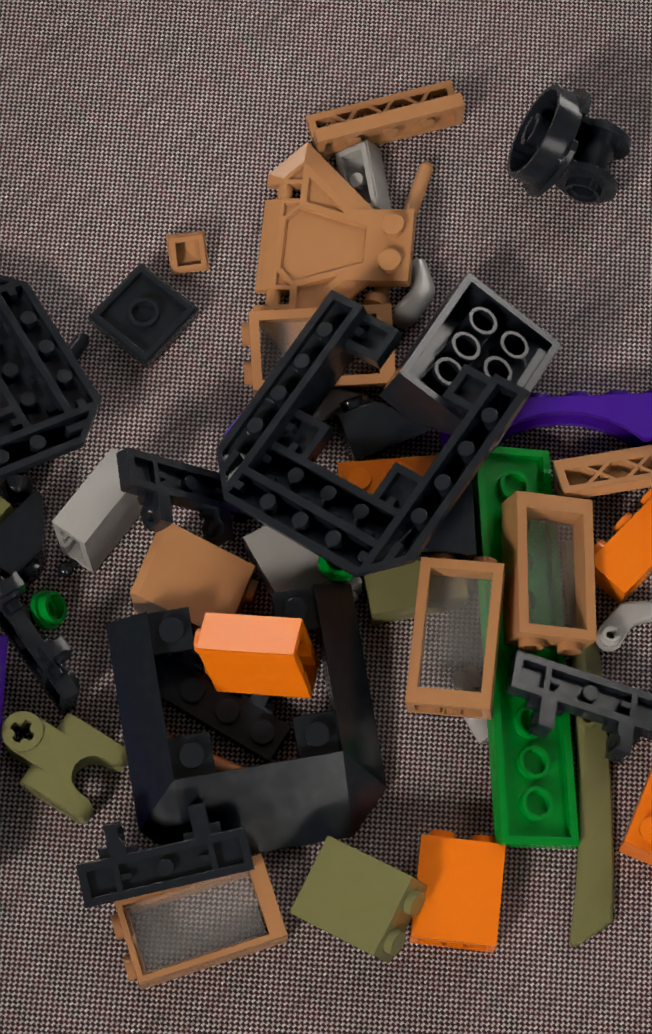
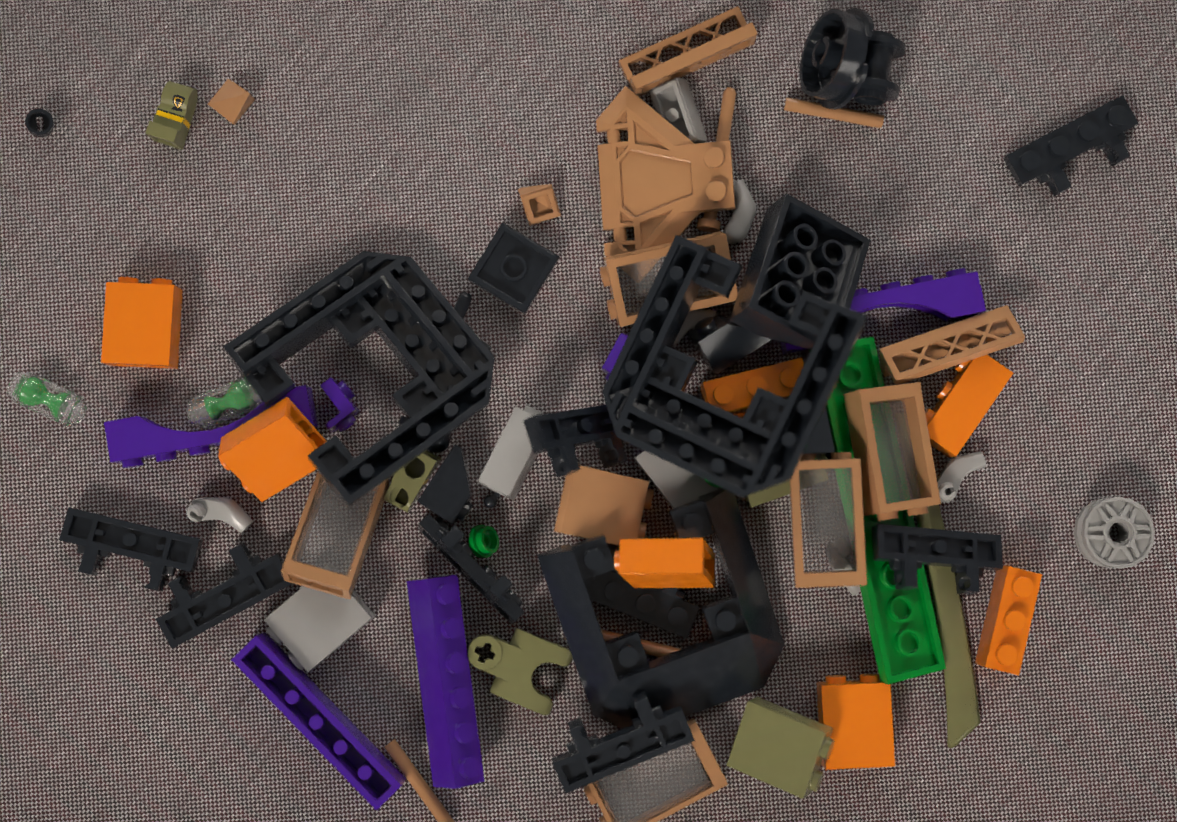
camera: 10 degrees left, 15 degrees up
(541, 206) = (841, 114): none -> medium nougat bar

